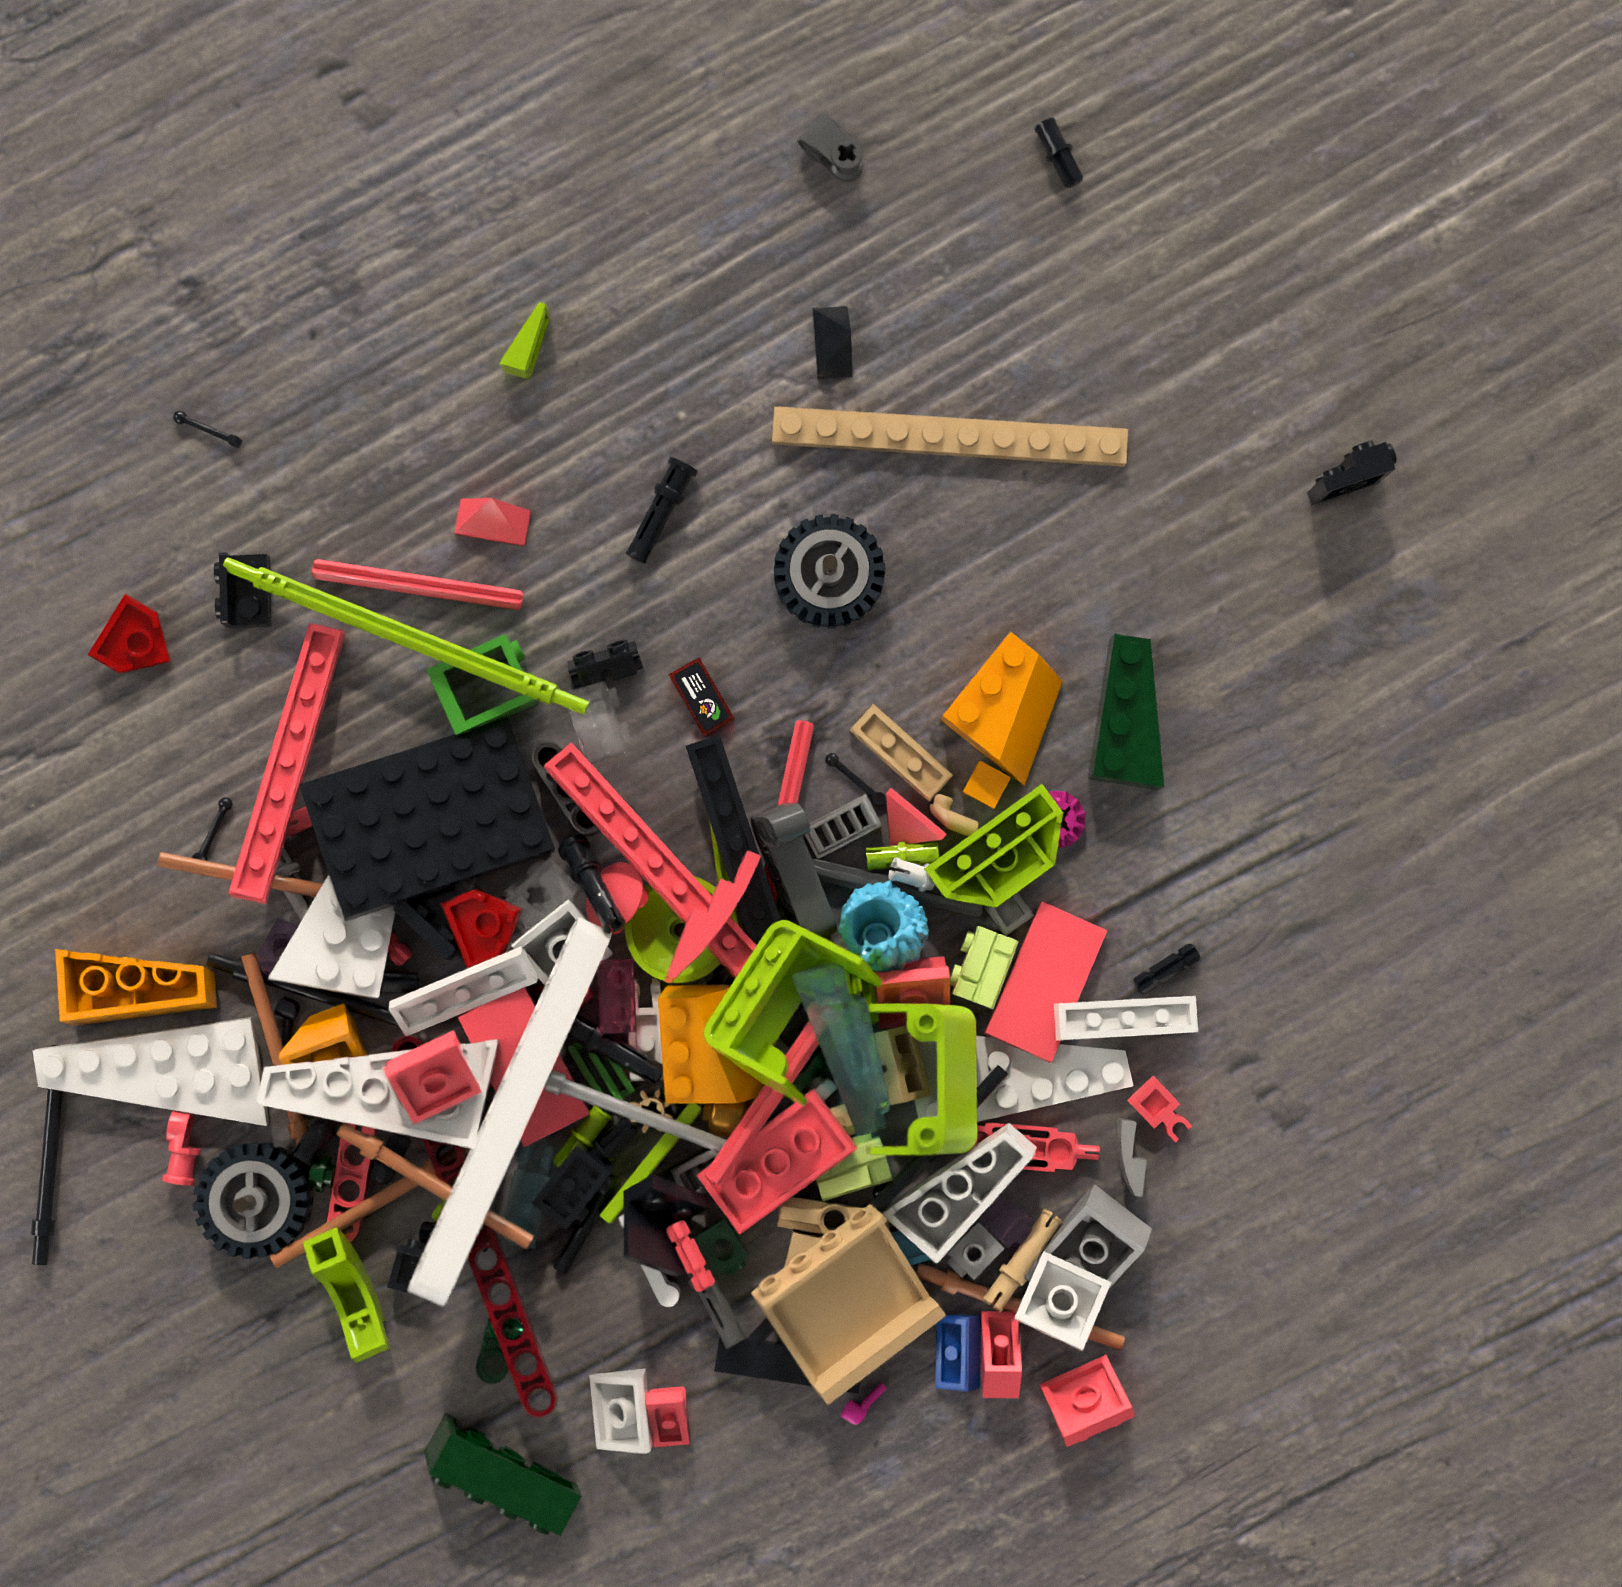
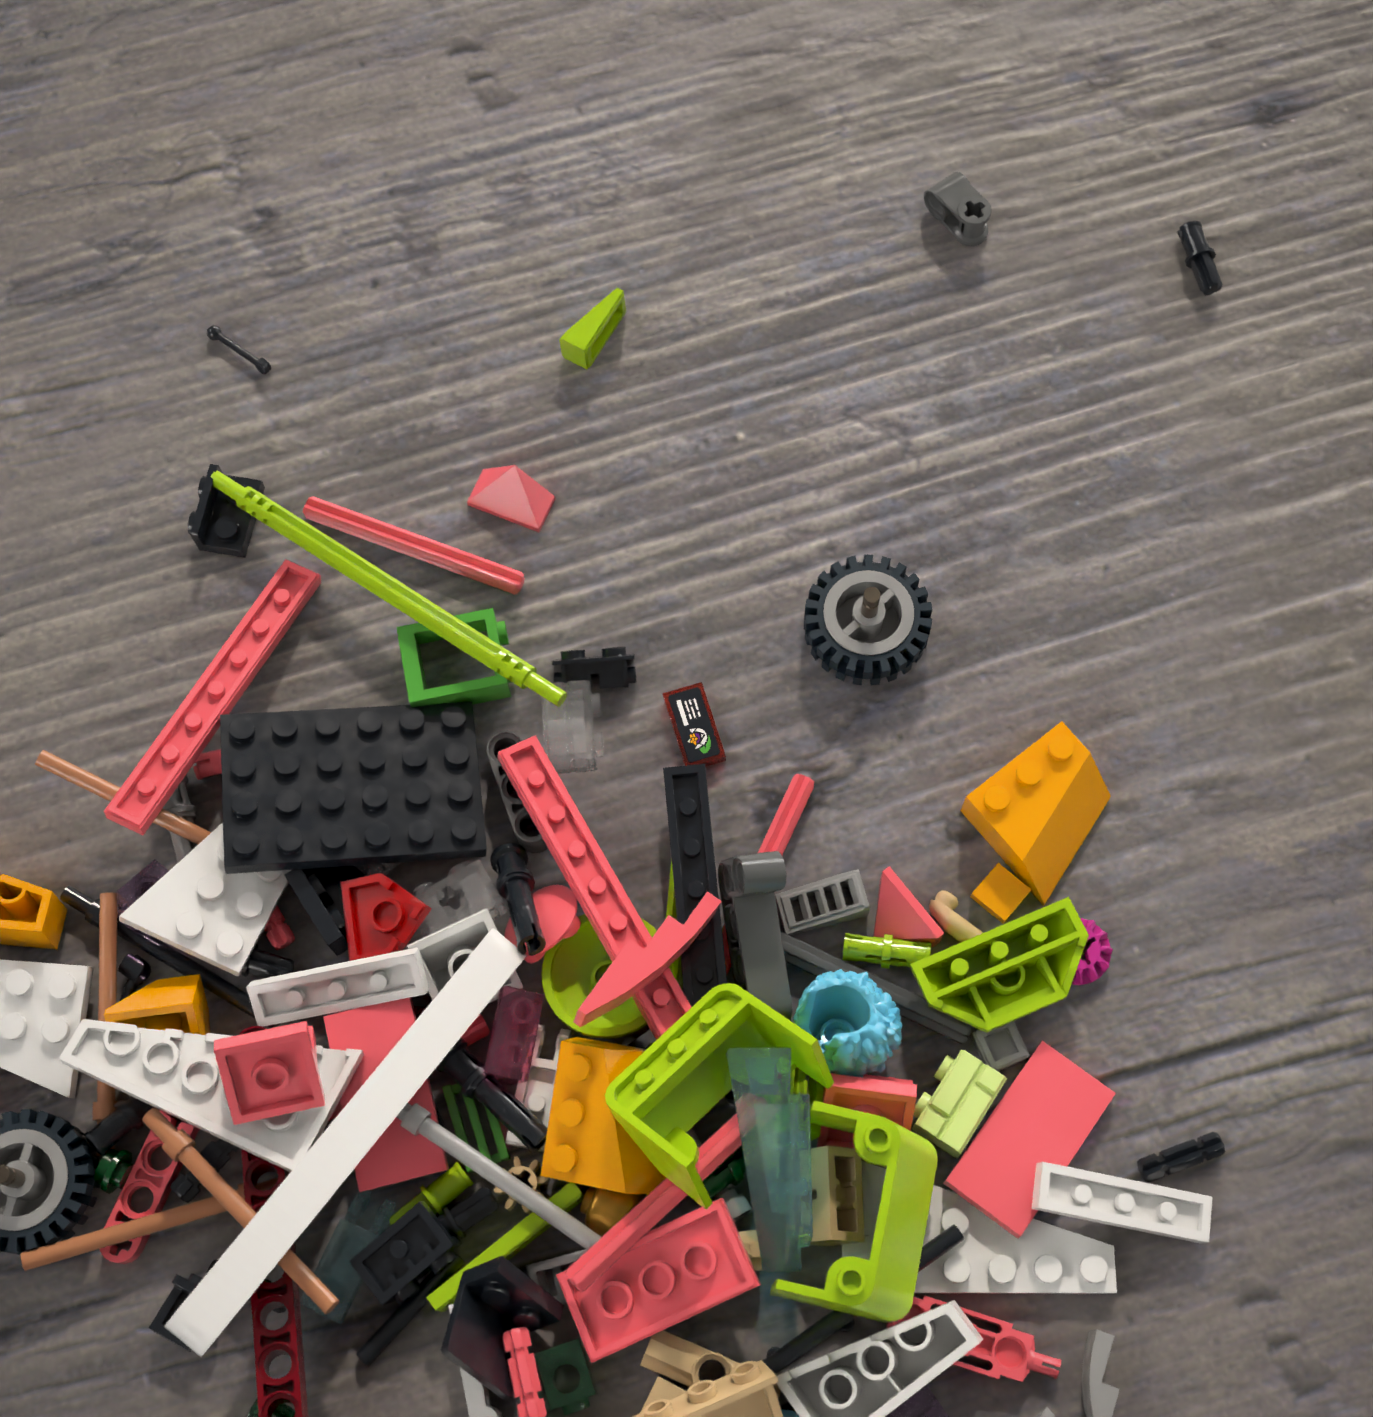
camera: 20 degrees right, 15 degrees down
(131, 638) = (91, 535): red plate -> none
(224, 804) = (137, 730): black hinge -> none
(351, 1290) = (105, 1319): lime arch -> none
(668, 495) = (706, 508): black pin -> none
(832, 342) = (920, 395): black slope -> none
(855, 1171) = (750, 1317): yellowish green brick -> none
(877, 798) = (871, 881): black hinge -> none
(901, 753) = (908, 837): tan tile -> none
(913, 874) = (893, 972): white pin -> none
(950, 436) = (1032, 513): tan plate -> none
(1127, 723) = (1180, 858): dark green wedge -> none
(1157, 1106) = (1142, 1325): coral plate -> none

